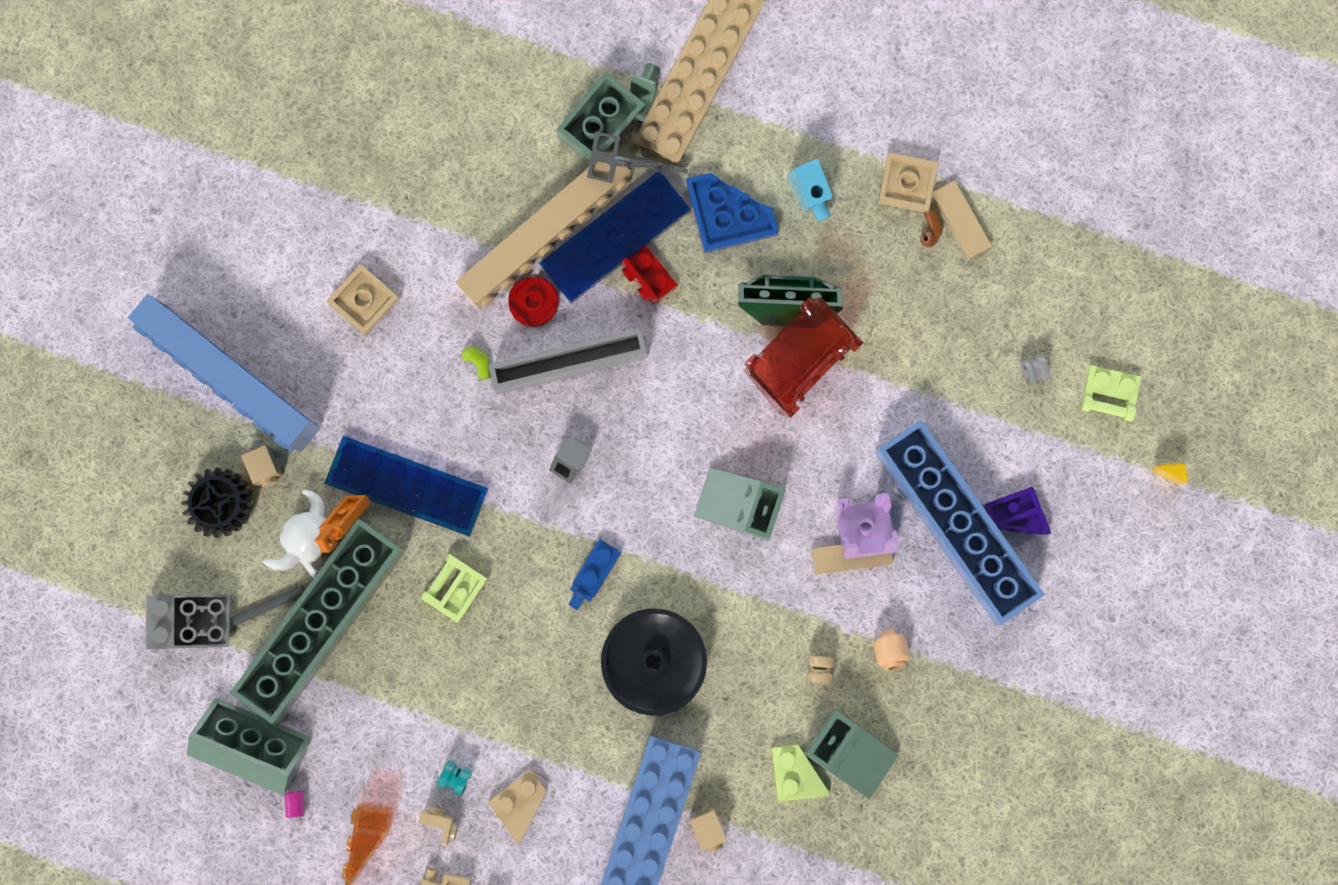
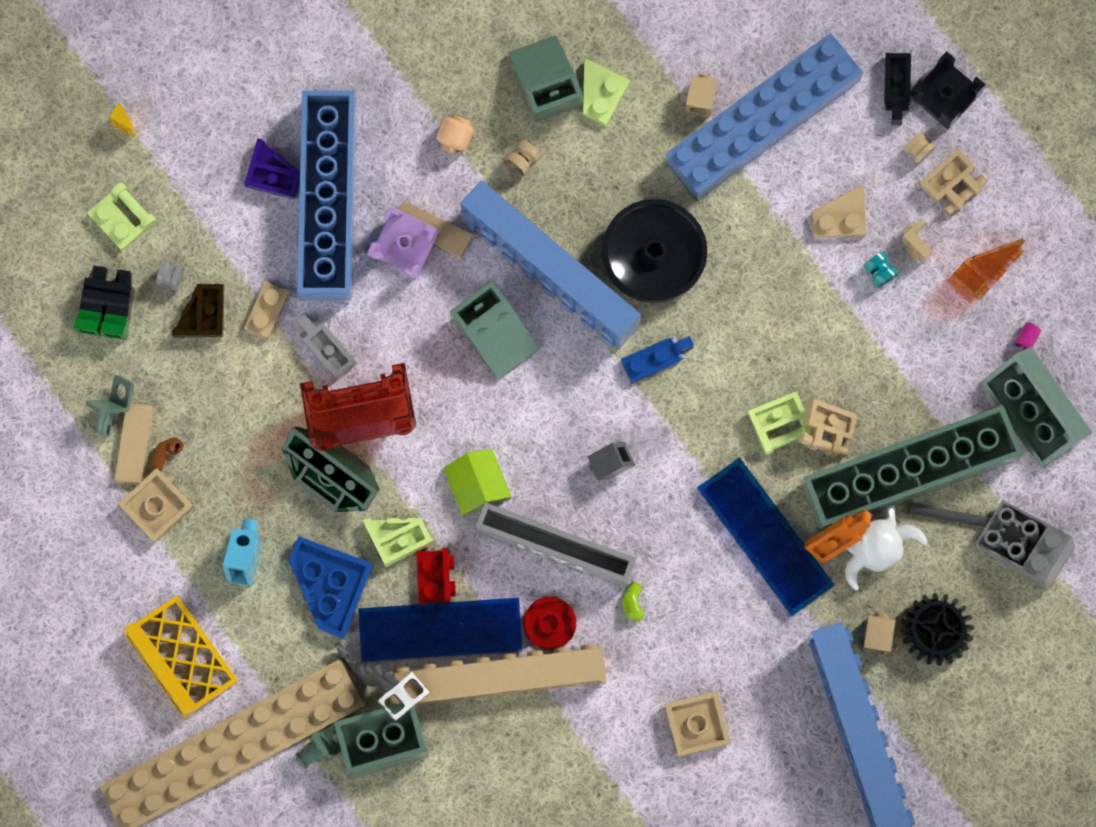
camera: 145 degrees left, 5 degrees down
(414, 615) = (829, 420): none -> tan plate
(667, 373) = (476, 480): none -> lime slope
(700, 285) = (397, 537): none -> yellowish green wing
(733, 588) = (550, 265): none -> medium blue brick
(804, 60) = (159, 668): none -> yellow fence
(868, 398) = (325, 347): none -> light grey hinge
(936, 397) = (266, 310): none -> tan plate
(985, 358) = (203, 314): none -> dark brown wing
(1003, 230) = (107, 408): none -> sand green bracket
(1067, 310) = (106, 304): none -> black hips

